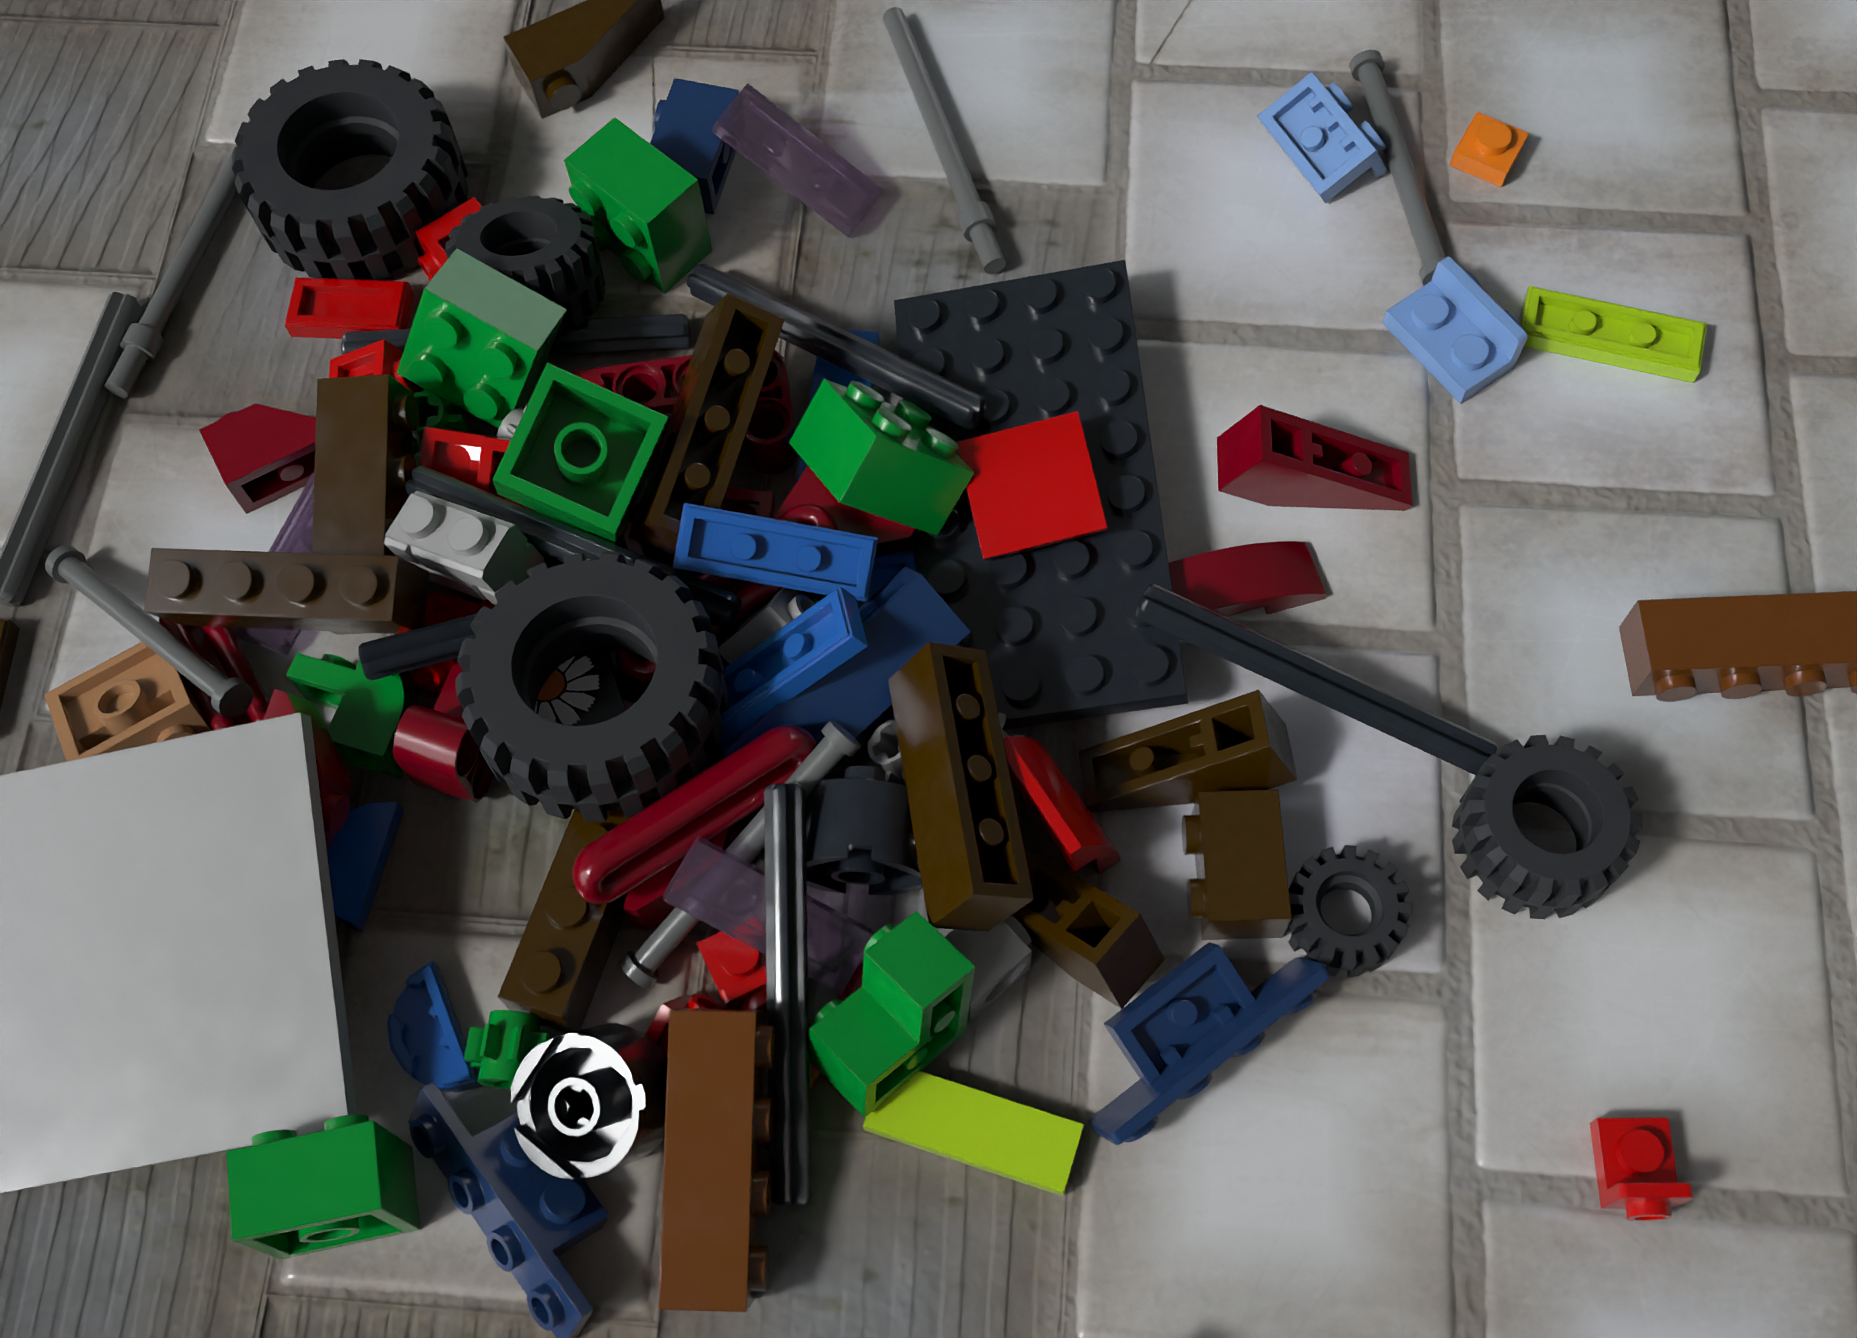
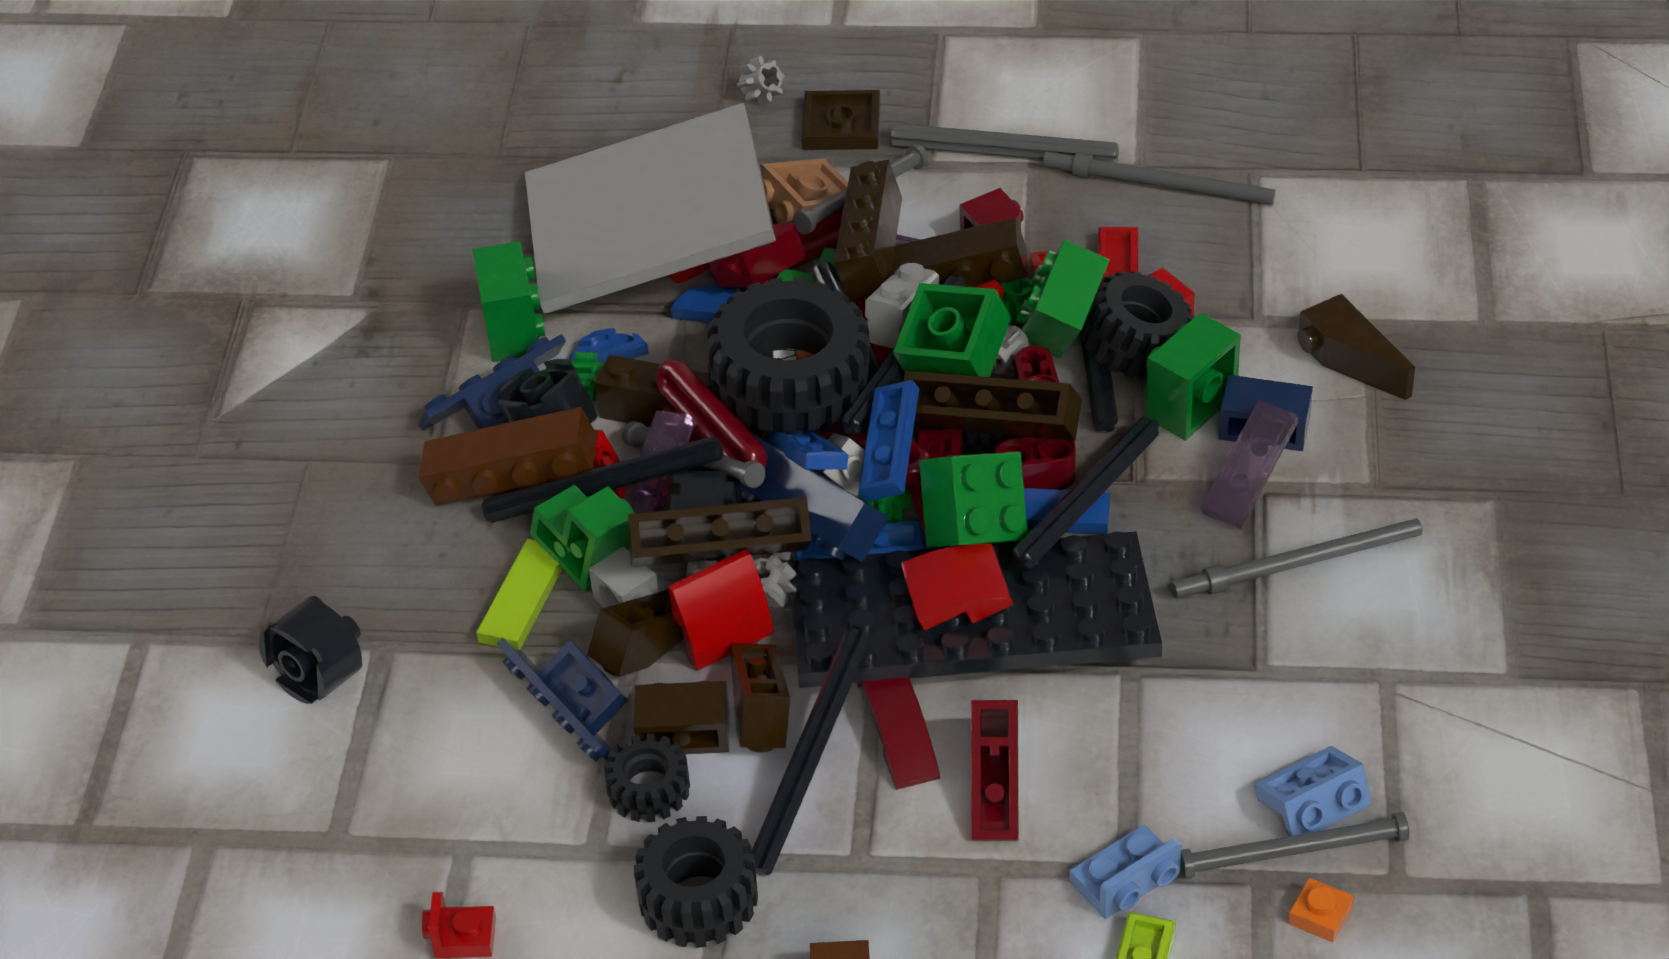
camera: 90 degrees right, 20 degrees down
(336, 117) = (1218, 201): black tyre -> none

